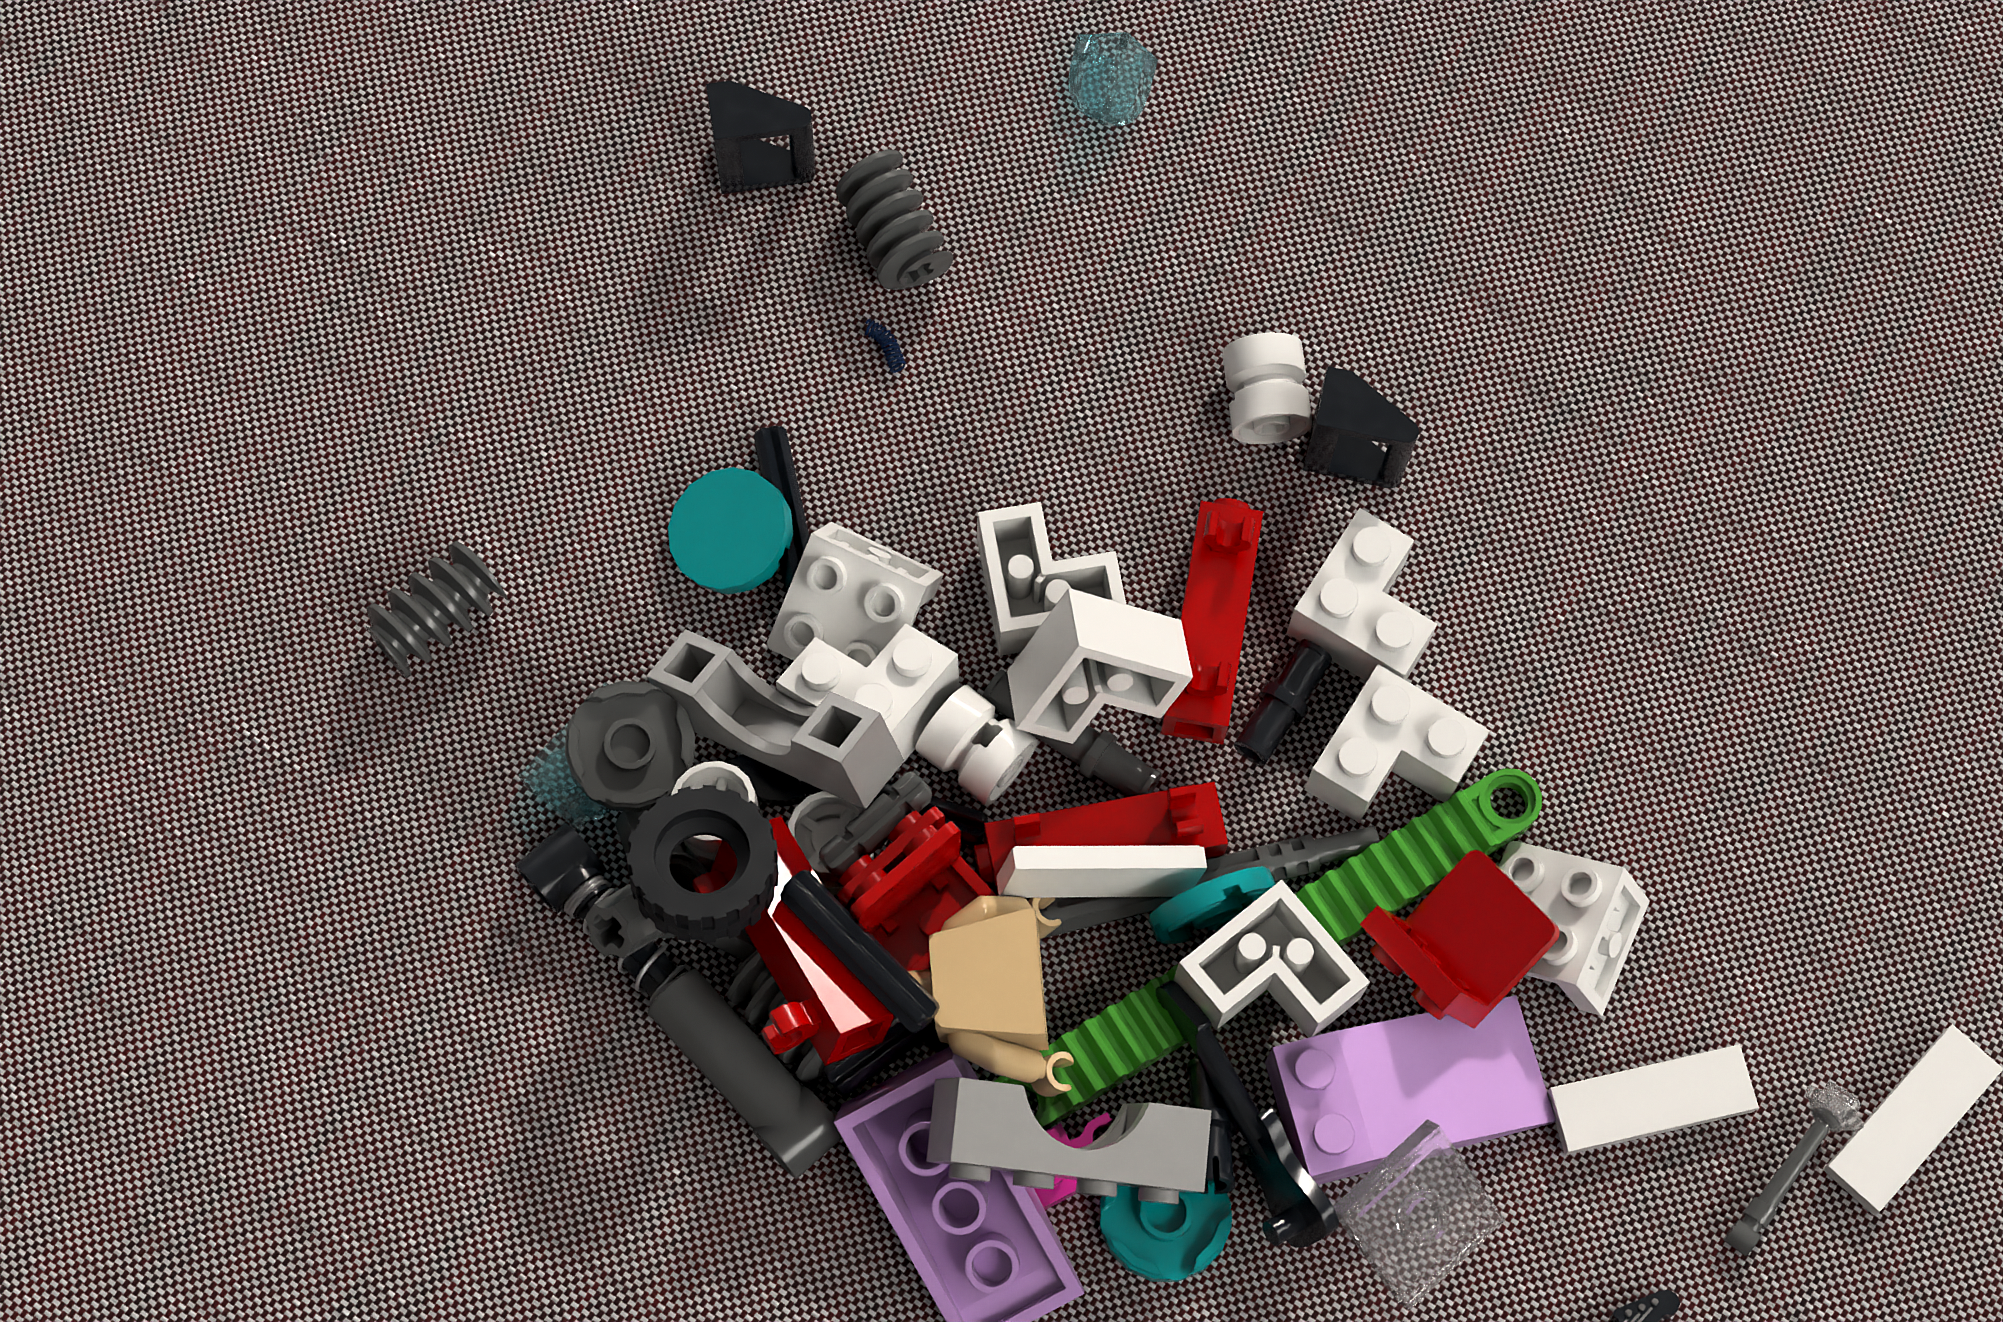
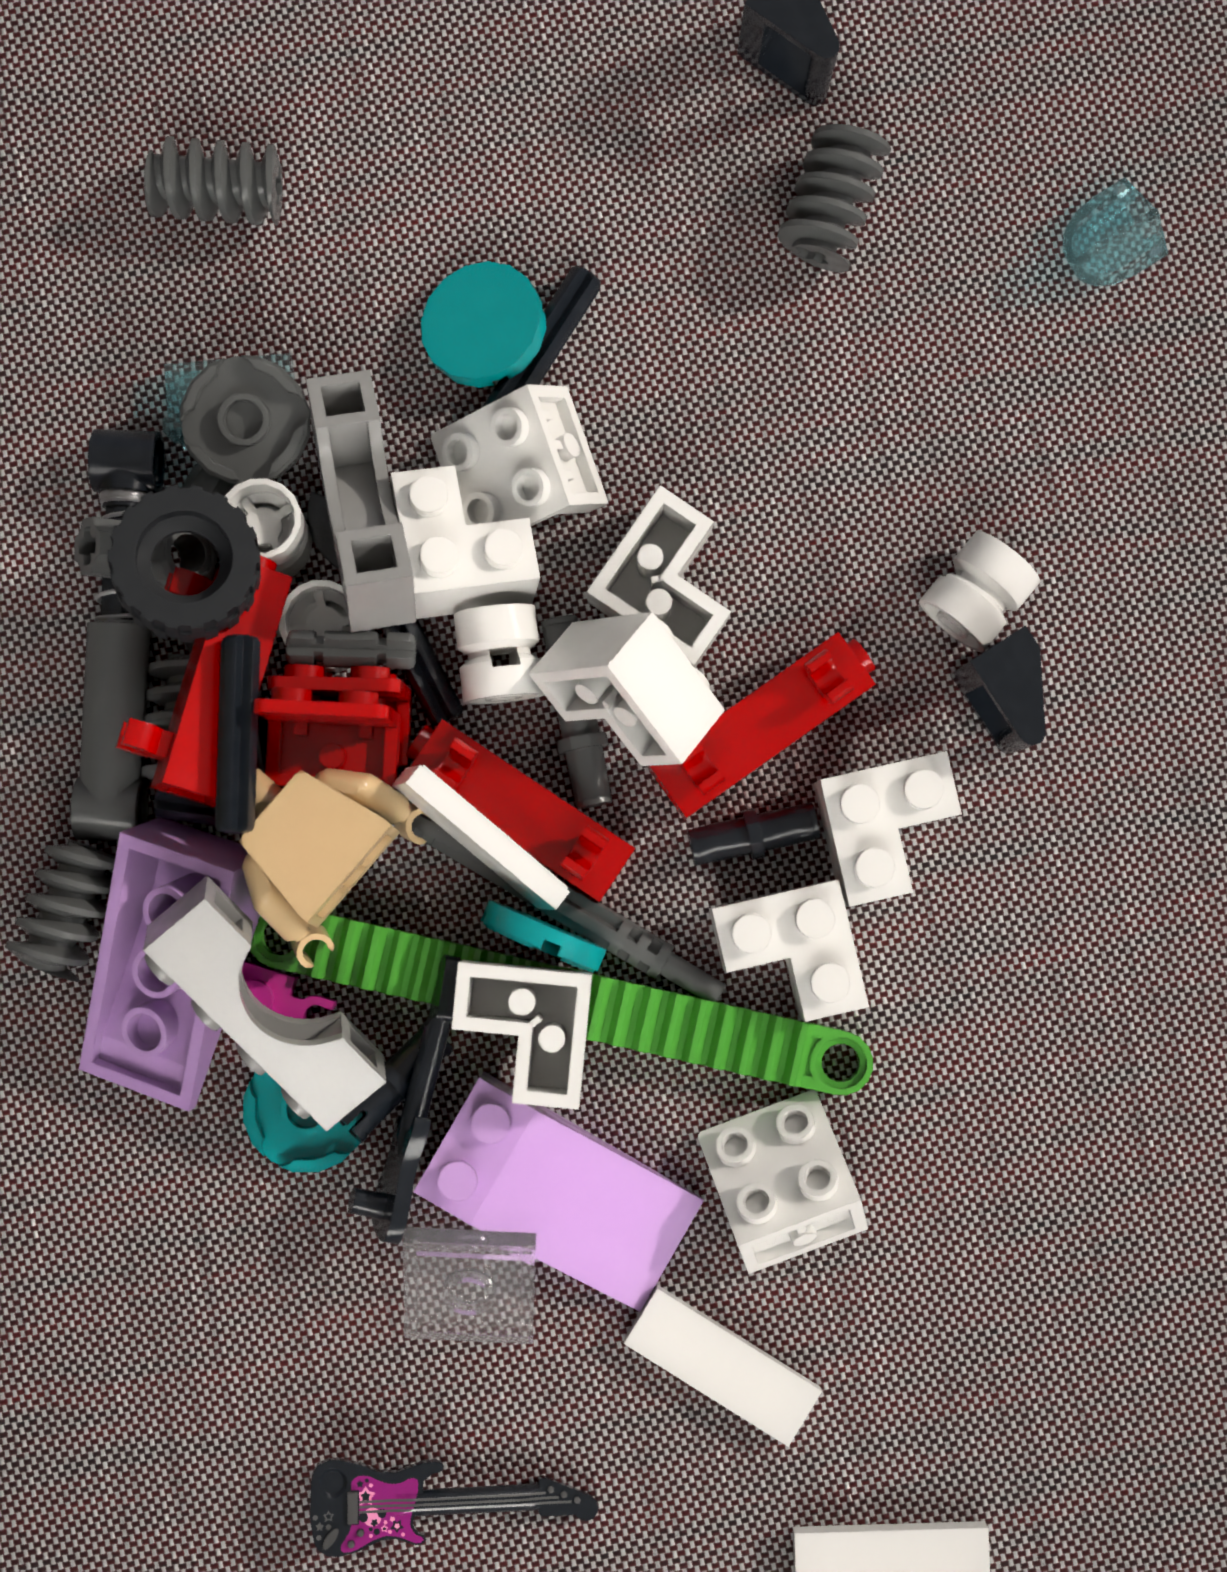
camera: 50 degrees right, 15 degrees up
(838, 1236) = (65, 909): none -> dark grey piece
(884, 340) = (739, 292): dark blue leg -> none
(1464, 940) = (694, 1133): red bracket -> none
(1833, 1111) = (836, 1501): dark grey piece -> none

